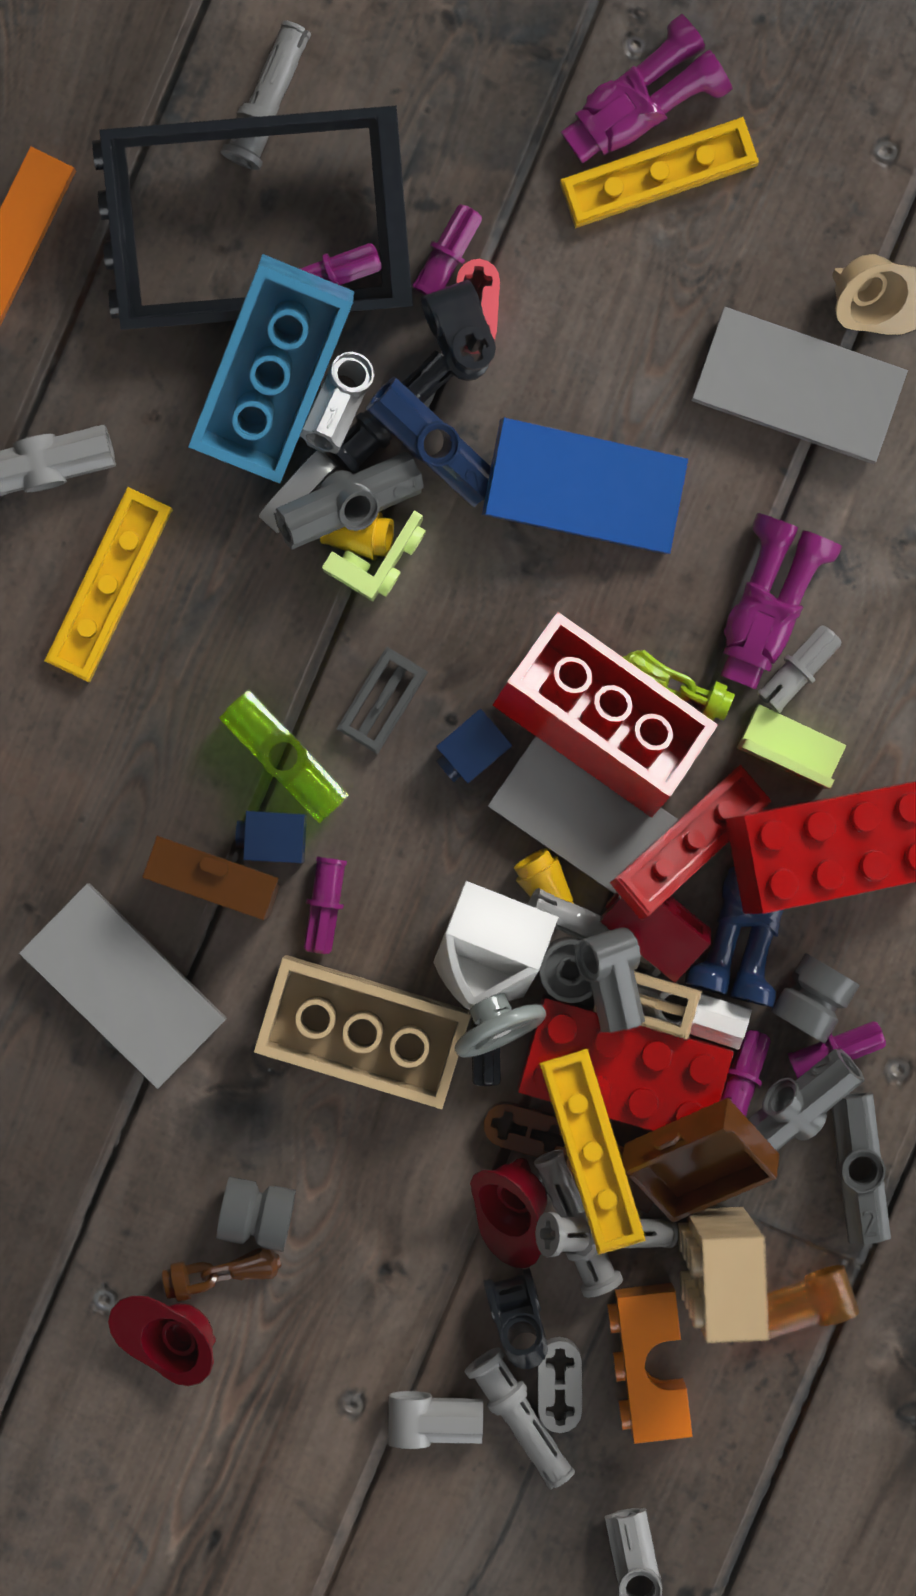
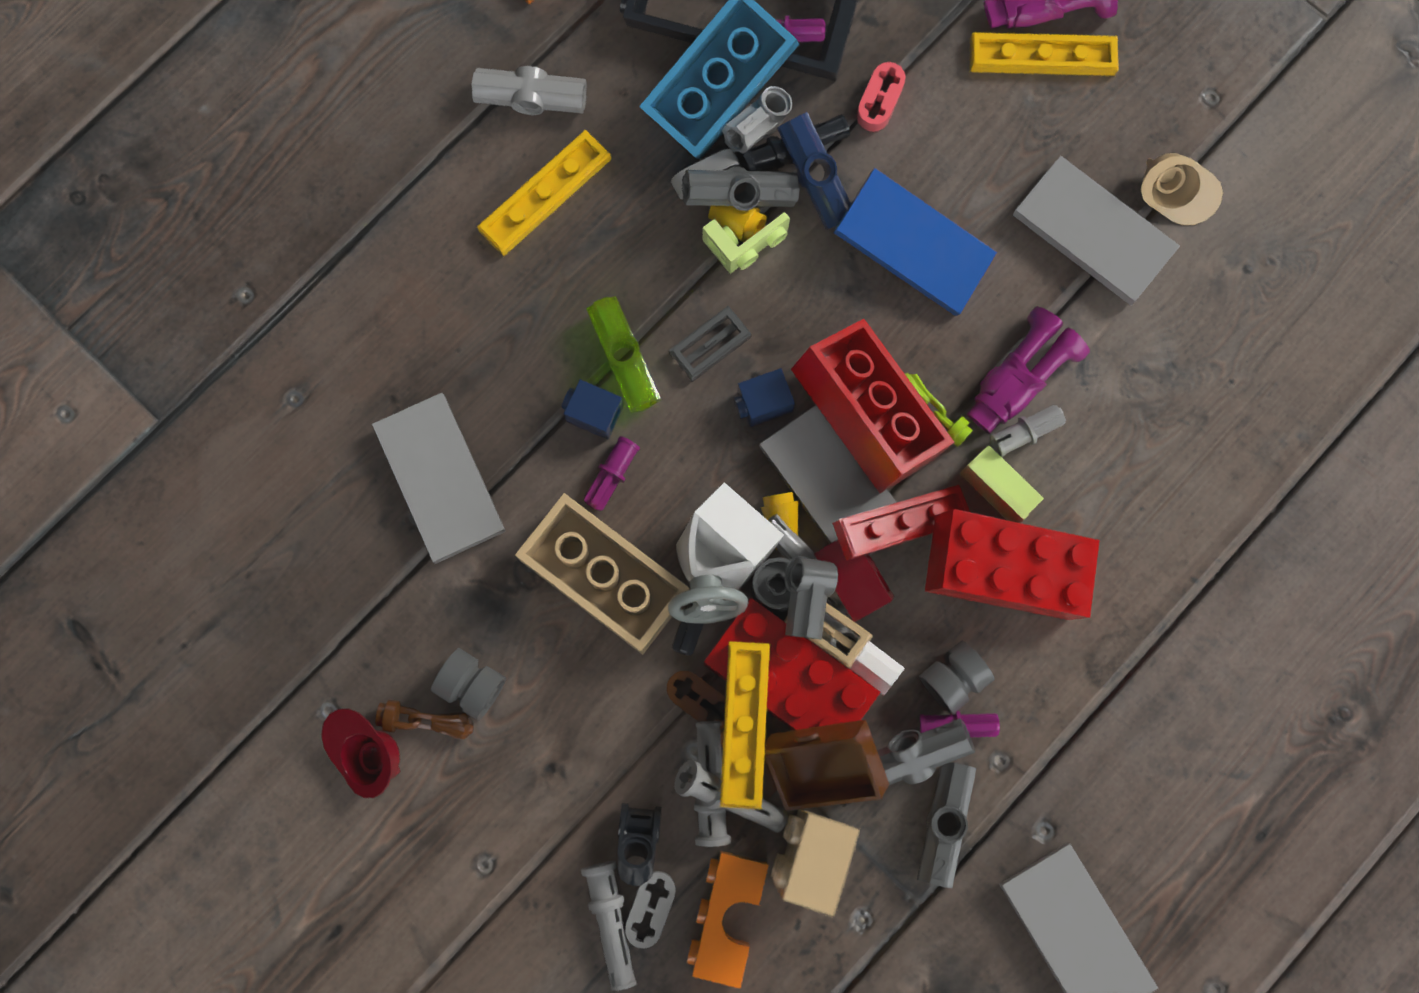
camera: 20 degrees right, 10 degrees down
(212, 878) = (536, 417): reddish brown container -> none
(419, 1420) = (532, 895): light grey piece -> none
(448, 250) = (873, 52): magenta axle -> none
(457, 322) = (864, 100): black piece -> none
(508, 1210) = (660, 753): dark red piece -> none
(747, 1066) = (886, 711): magenta axle -> none
(750, 980) = (910, 650): dark blue piece -> none
(821, 1298) = (878, 916): clear orange piece -> none

